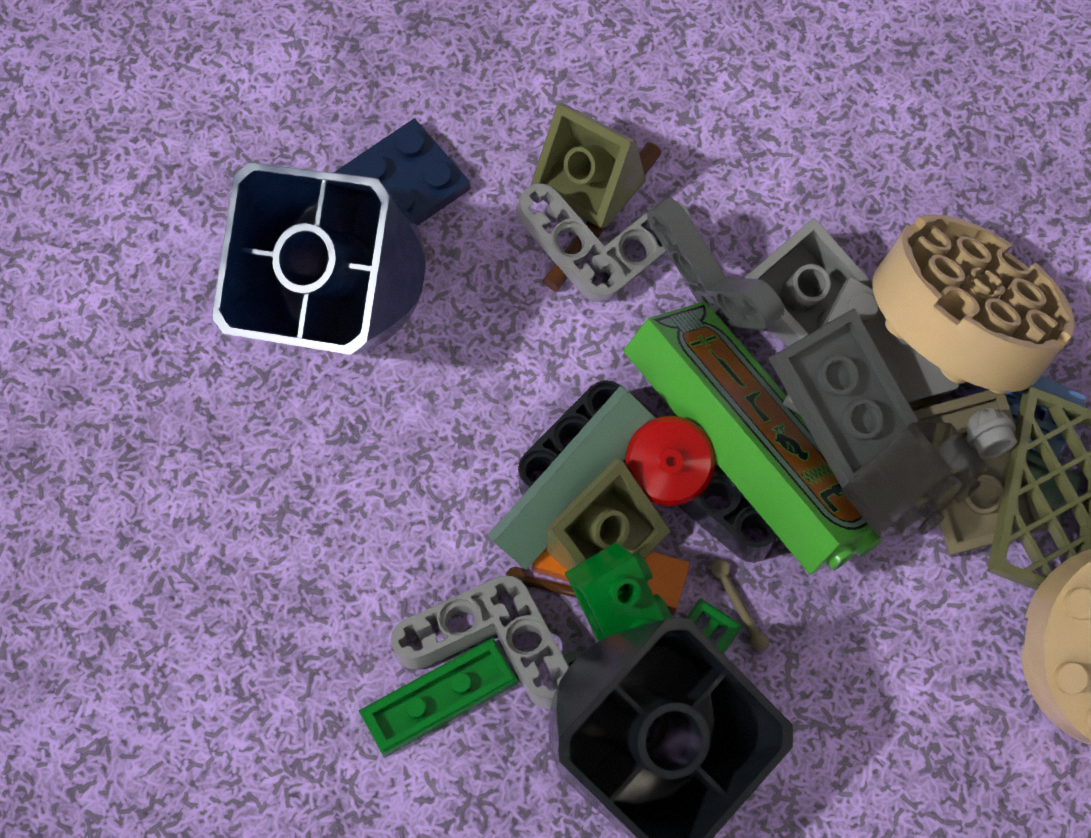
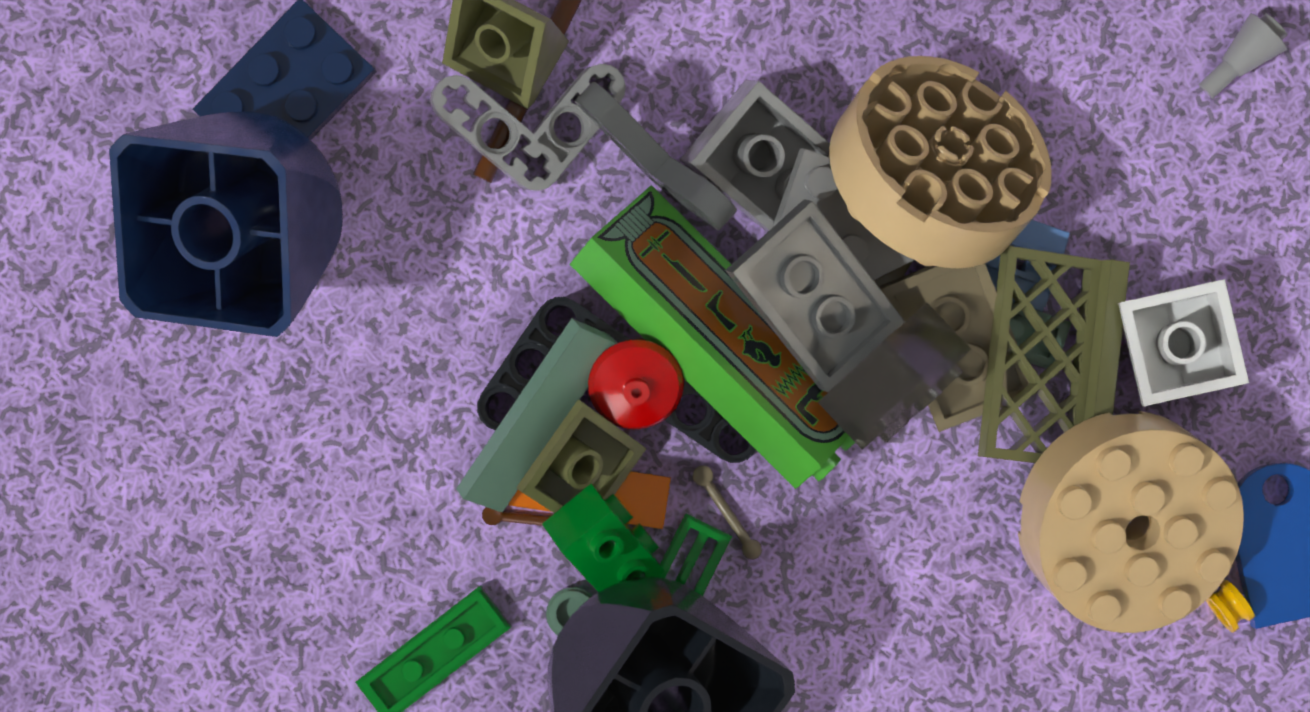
camera: 10 degrees left, 20 degrees up
(489, 621) = (470, 571): light grey beam -> none
(991, 433) = (969, 307): light grey plate -> none

